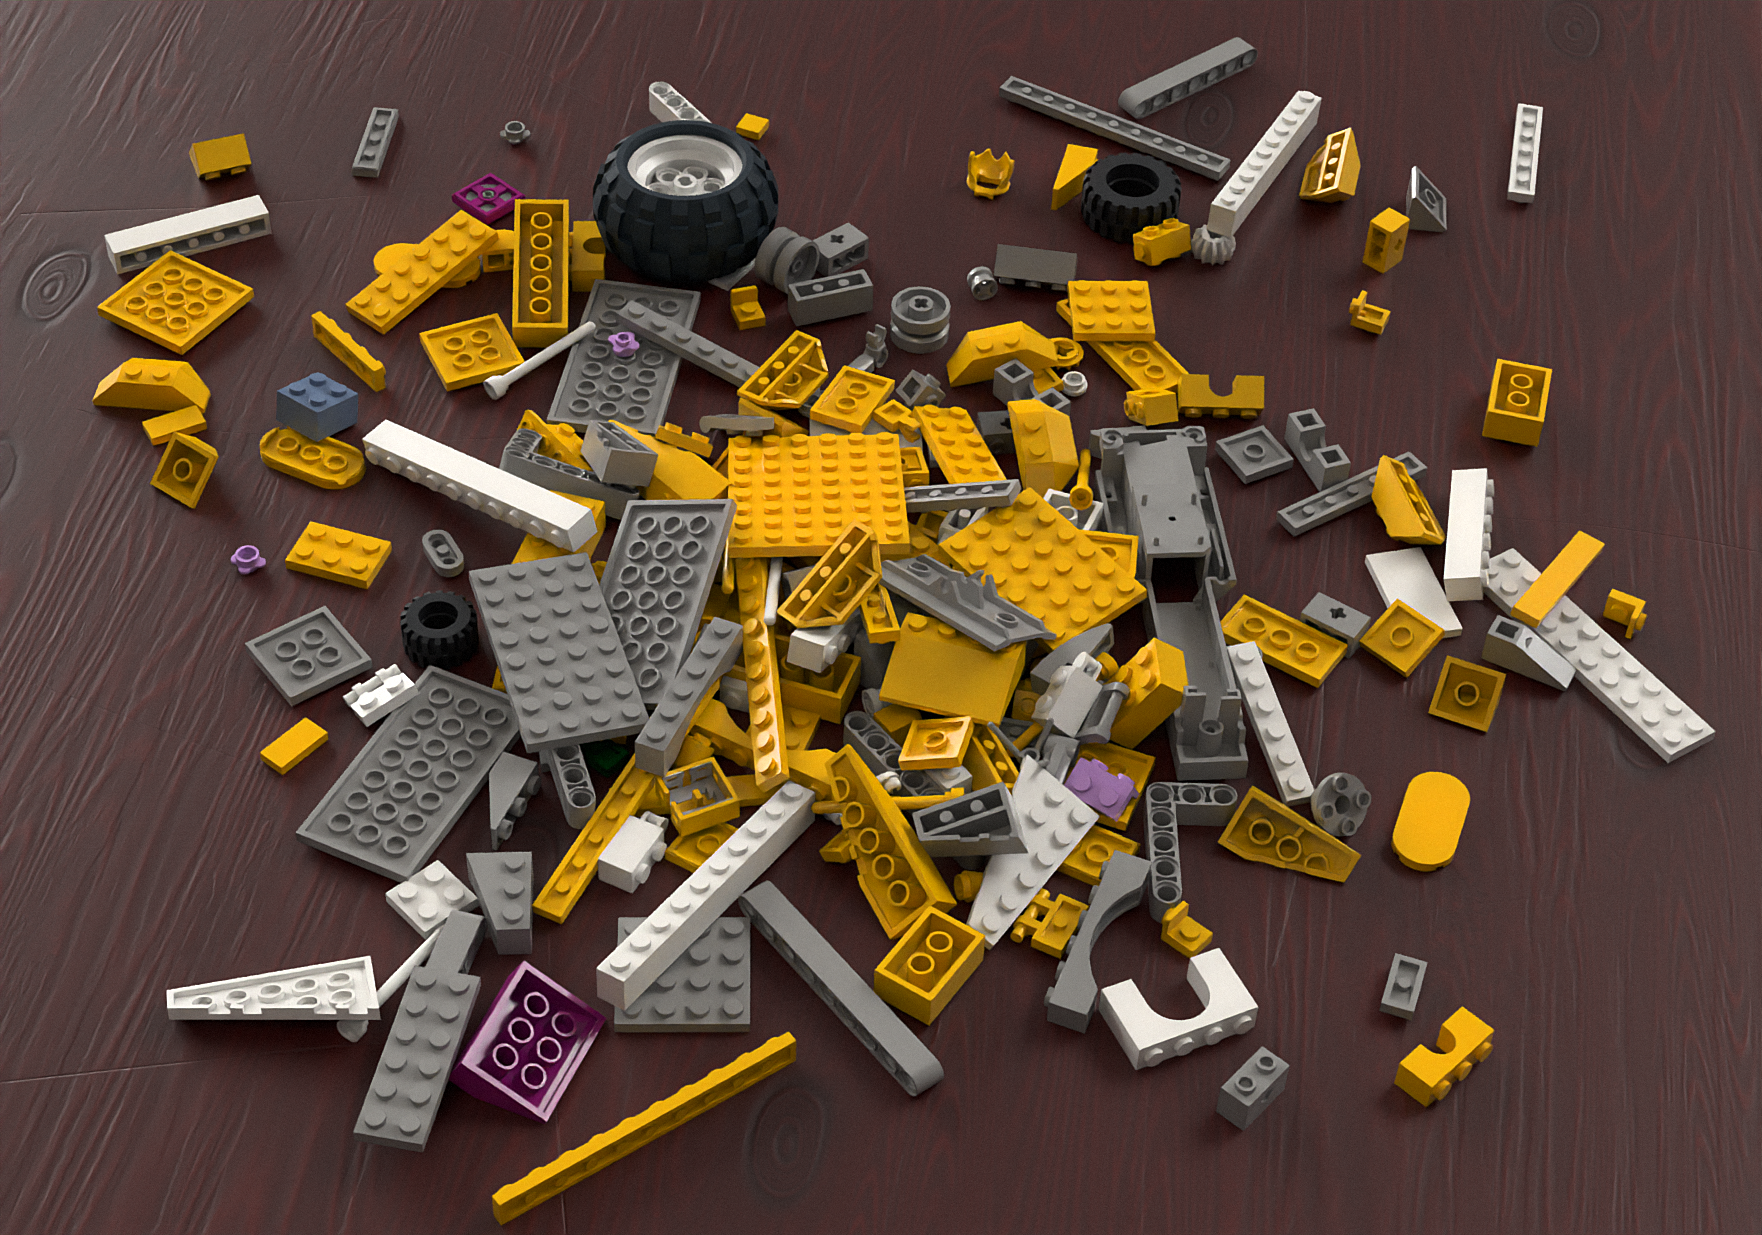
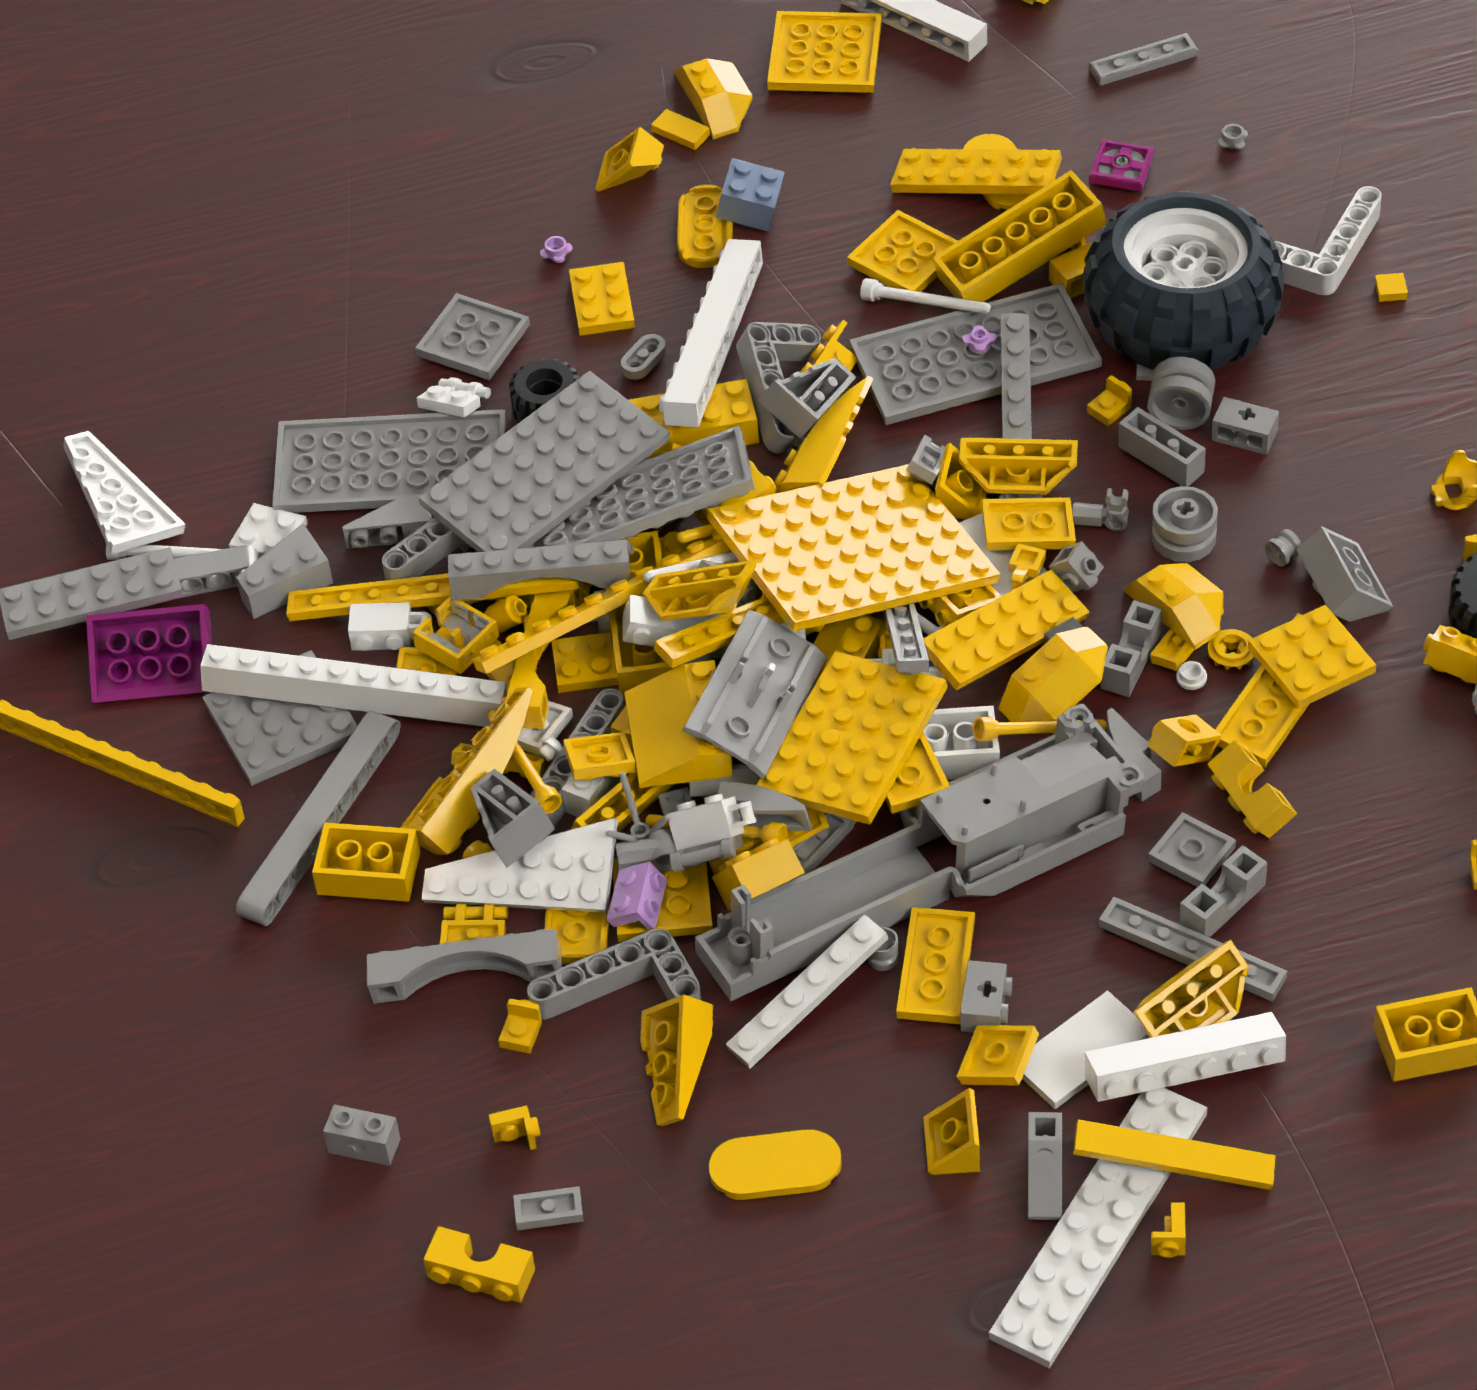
camera: 70 degrees right, 5 degrees up
(294, 746) = (375, 378): yellow tile -> none
(348, 351) = (841, 182): yellow plate -> none
(695, 443) = (876, 435): yellow plate -> none
(1153, 1038) = (439, 1086): white arch -> none
(1304, 968) = (513, 1124): none -> yellow bracket
(1340, 804) = (732, 1079): light grey plate -> none

